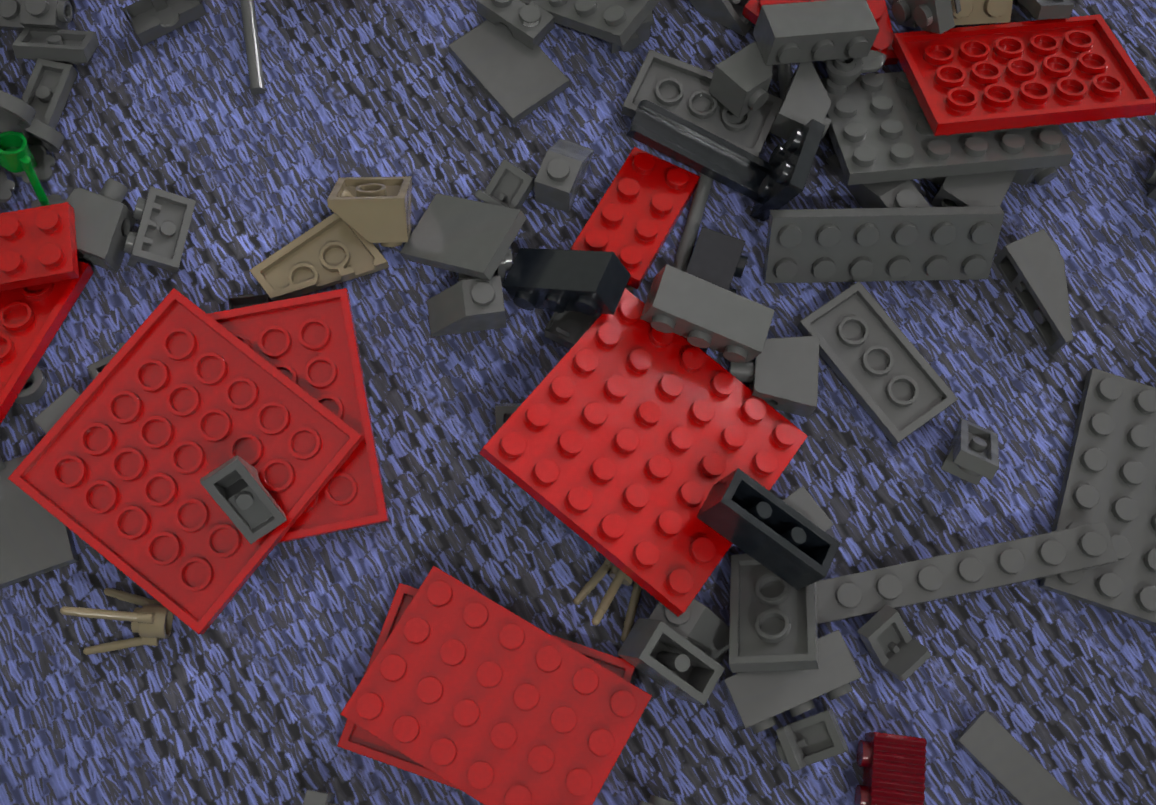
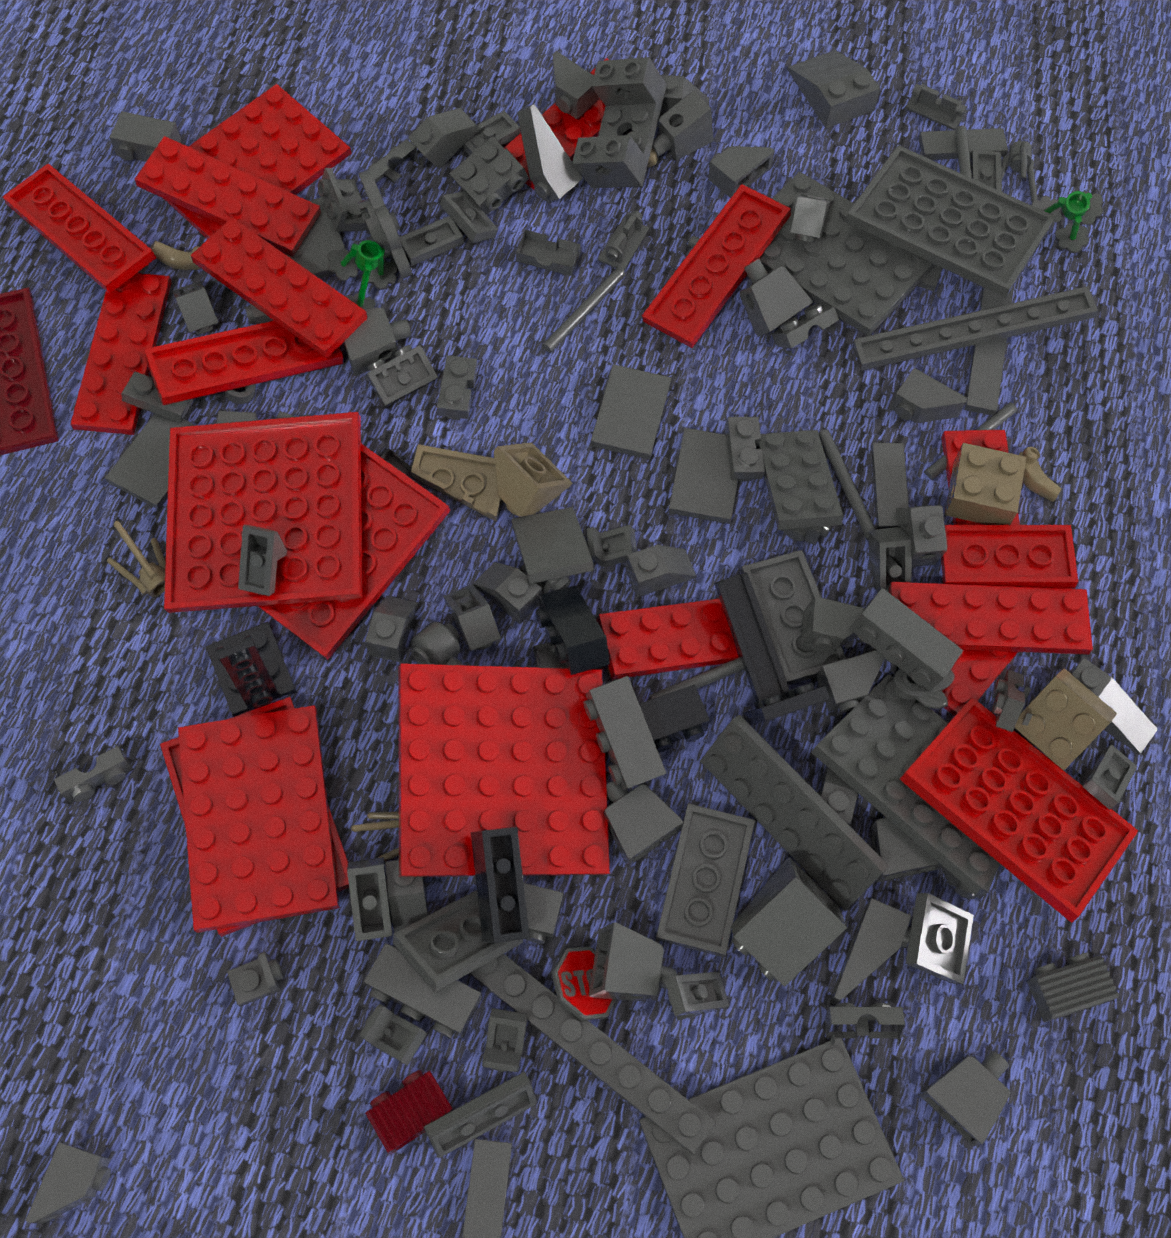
camera: 50 degrees right, 5 degrees down
(216, 185) = (454, 394): none -> dark grey piece
(334, 599) = (250, 669): none -> black bracket
(389, 74) = (631, 411): none -> dark grey tile
(412, 437) = (390, 628): none -> dark grey slope
(467, 358) = (472, 617): none -> dark grey slope
(467, 412) = (436, 644): none -> dark grey head
(894, 534) = (572, 984): none -> piece
(908, 485) = (627, 965): none -> dark grey torso
(945, 718) = (481, 1115): none -> dark grey tile
(976, 327) = (787, 924): none -> dark grey slope
(1075, 225) = (939, 938): none -> dark grey plate
(1085, 350) = (849, 1014): none -> dark grey piece

